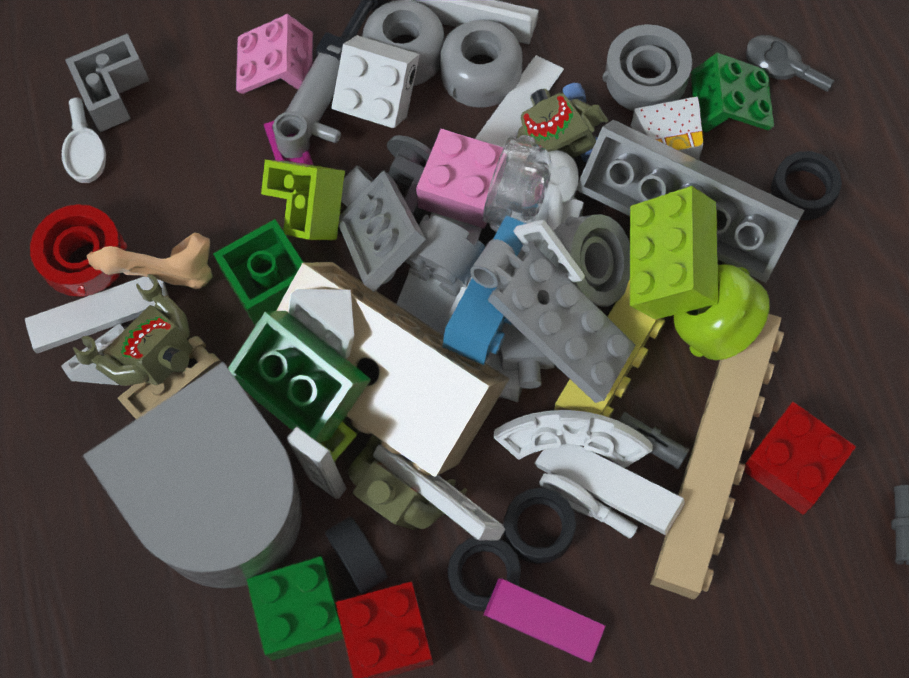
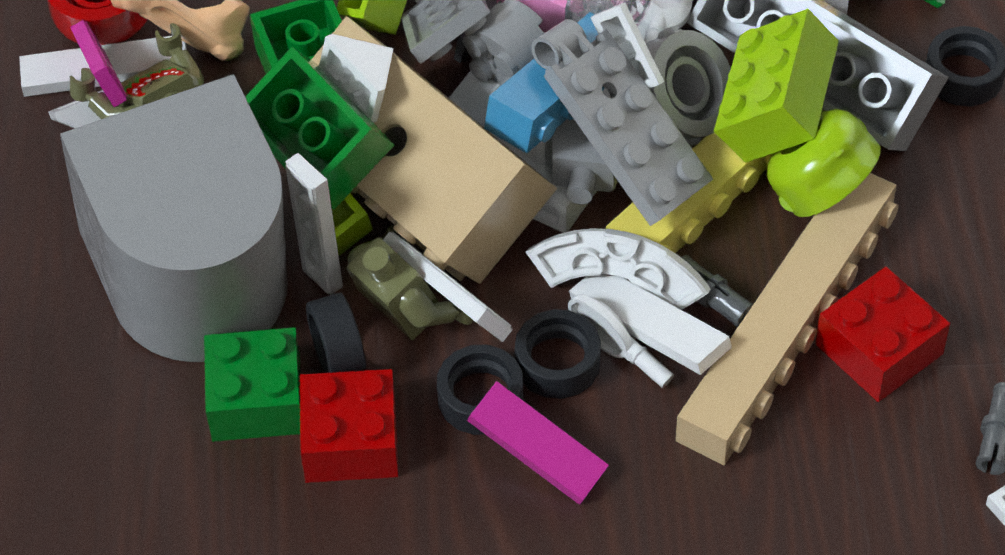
camera: 10 degrees right, 15 degrees down
(95, 328) = (99, 63): none -> dark pink tile

